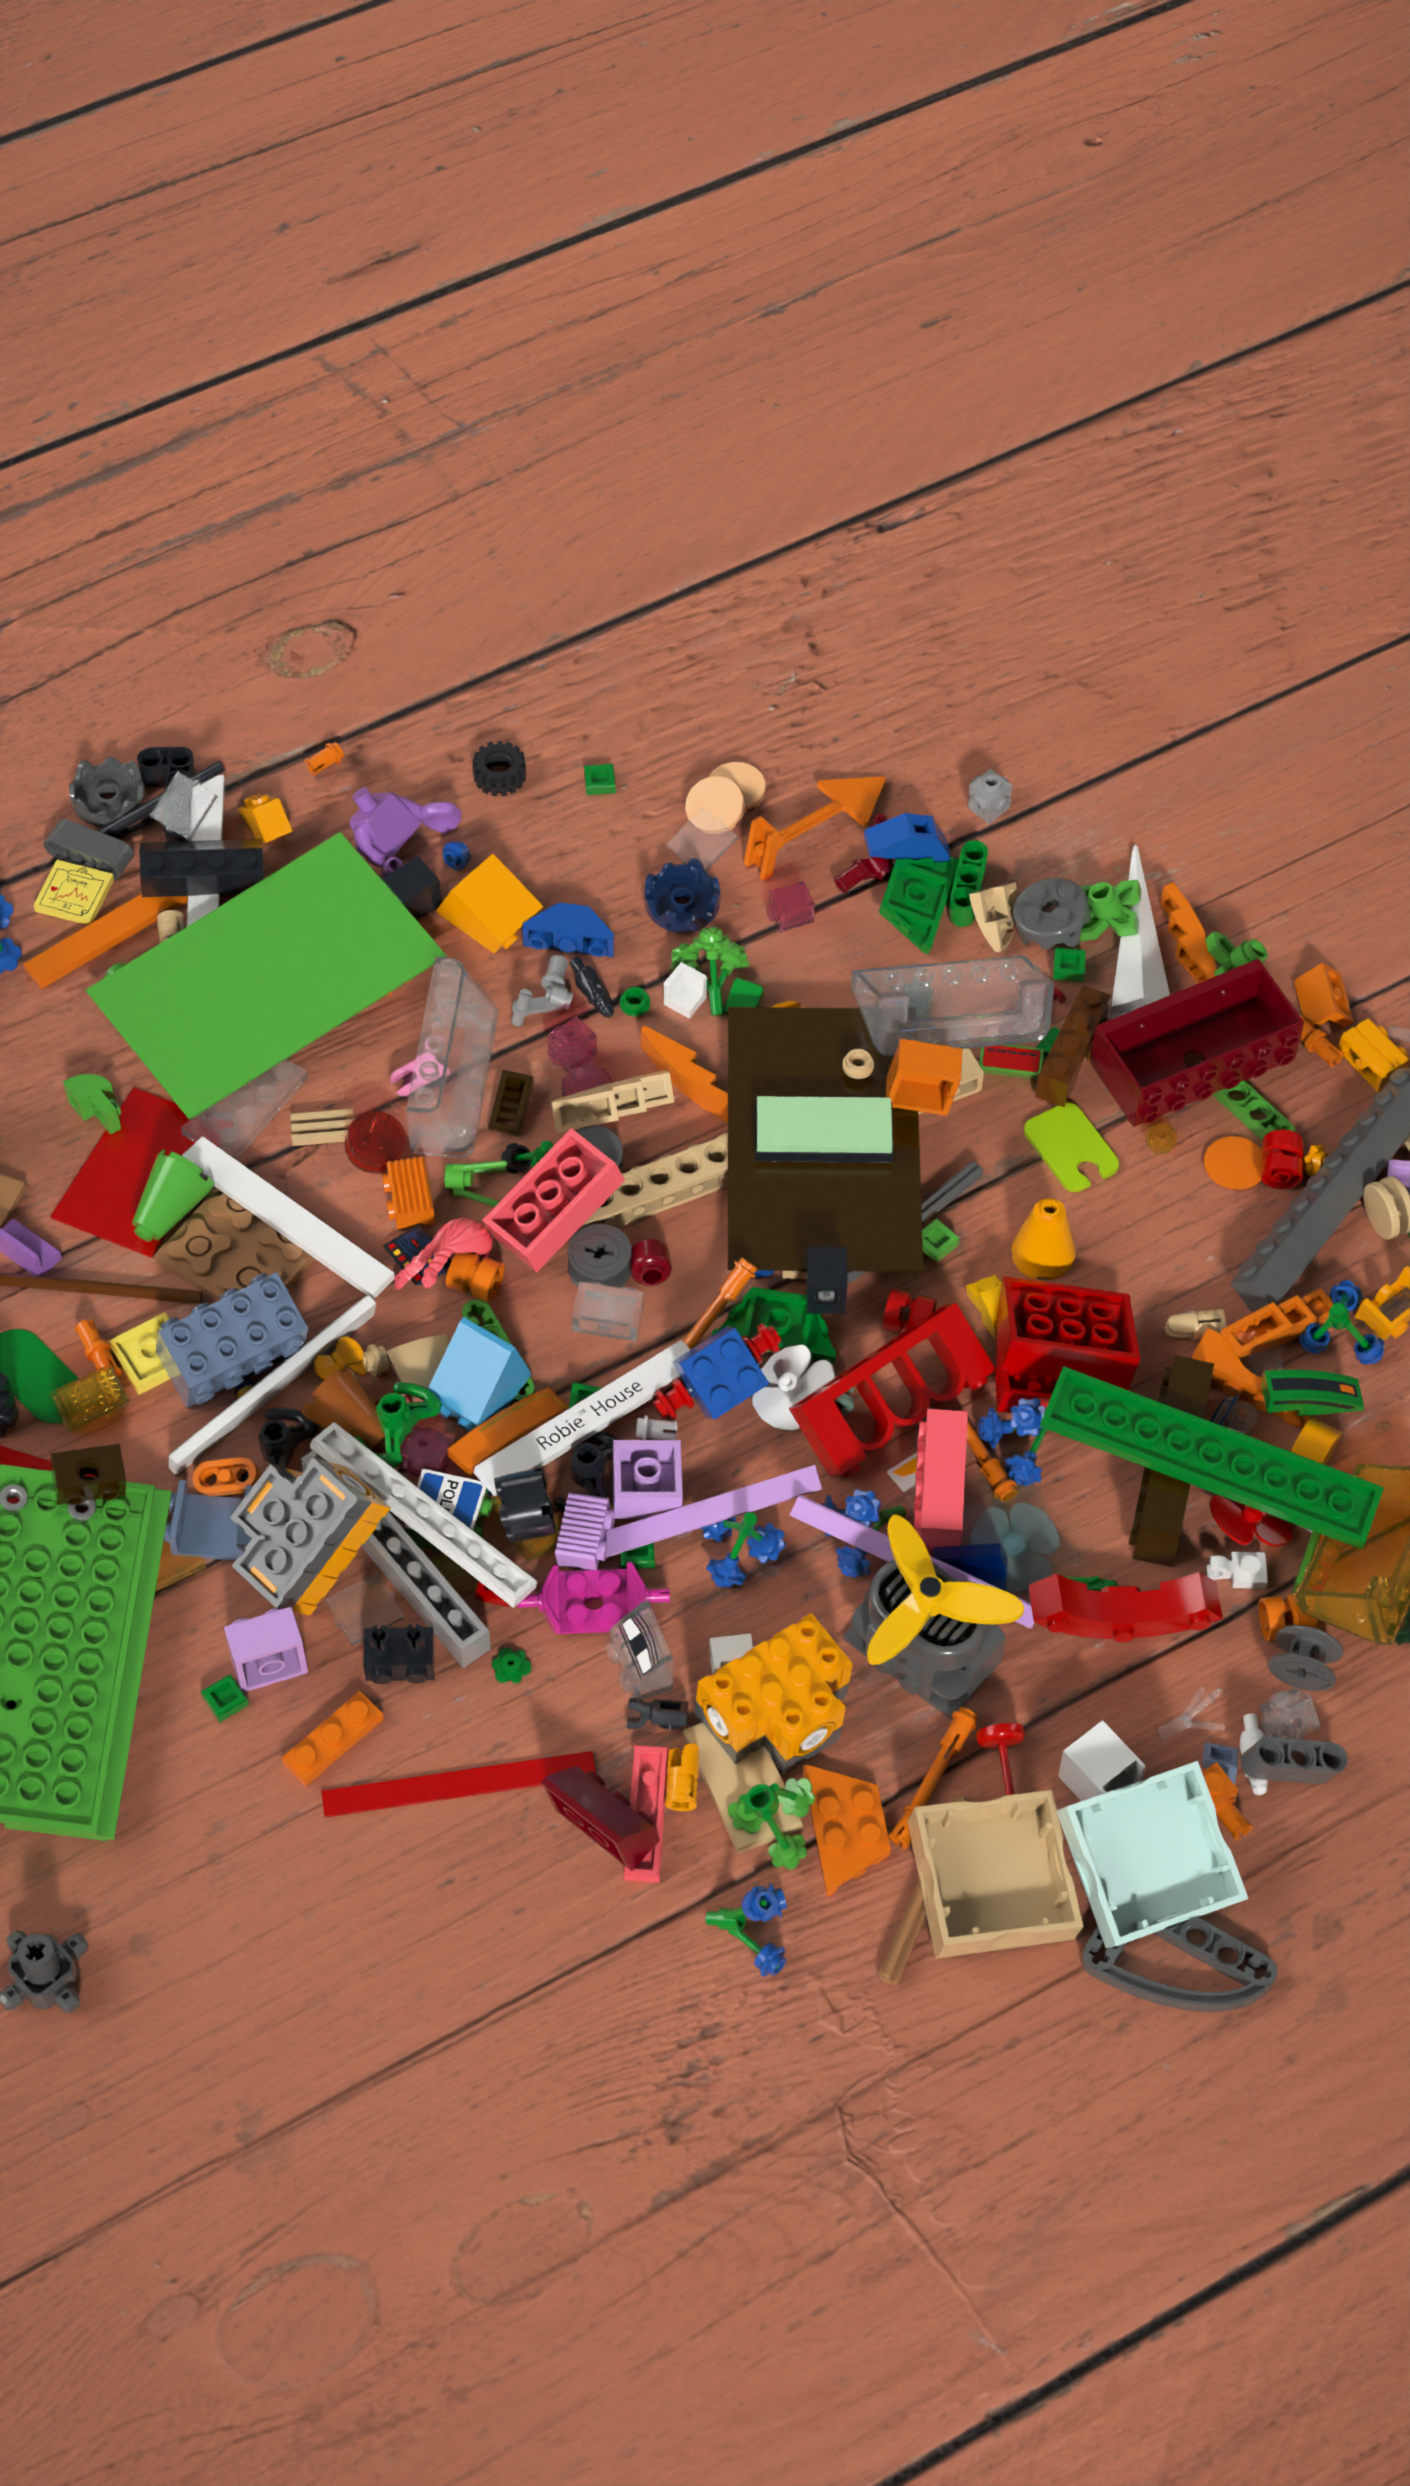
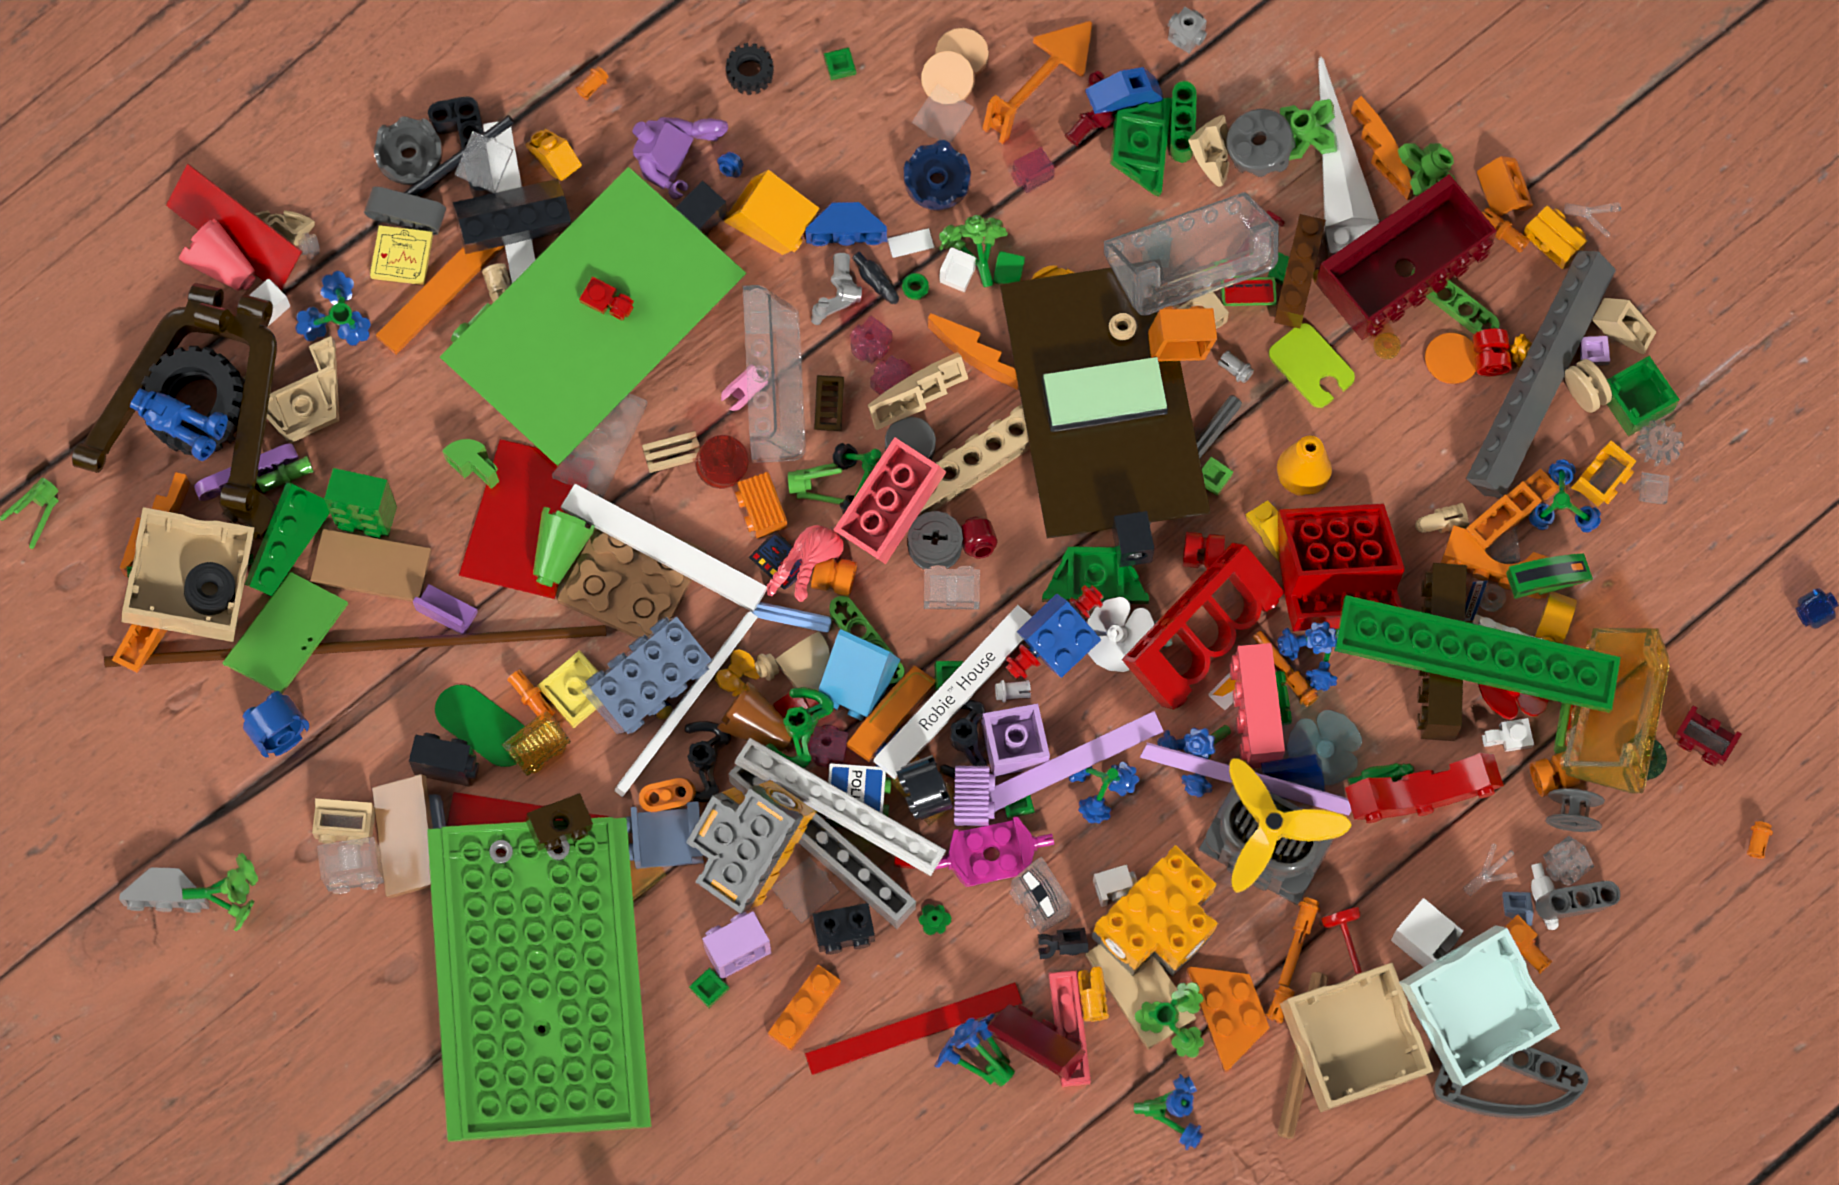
camera: 10 degrees left, 15 degrees up
(280, 953) = (601, 296): none -> red plate
(416, 1314) = (793, 617): none -> light blue axle
(551, 1840) = (998, 1067): none -> plant
(639, 961) = (910, 243): none -> white sticker
(728, 1290) = (1053, 555): orange pin -> none
(972, 1487) = (1284, 704): none -> green axle
(983, 1134) = (1236, 367): none -> light grey pin
(1069, 964) = (1282, 188): green plate -> none

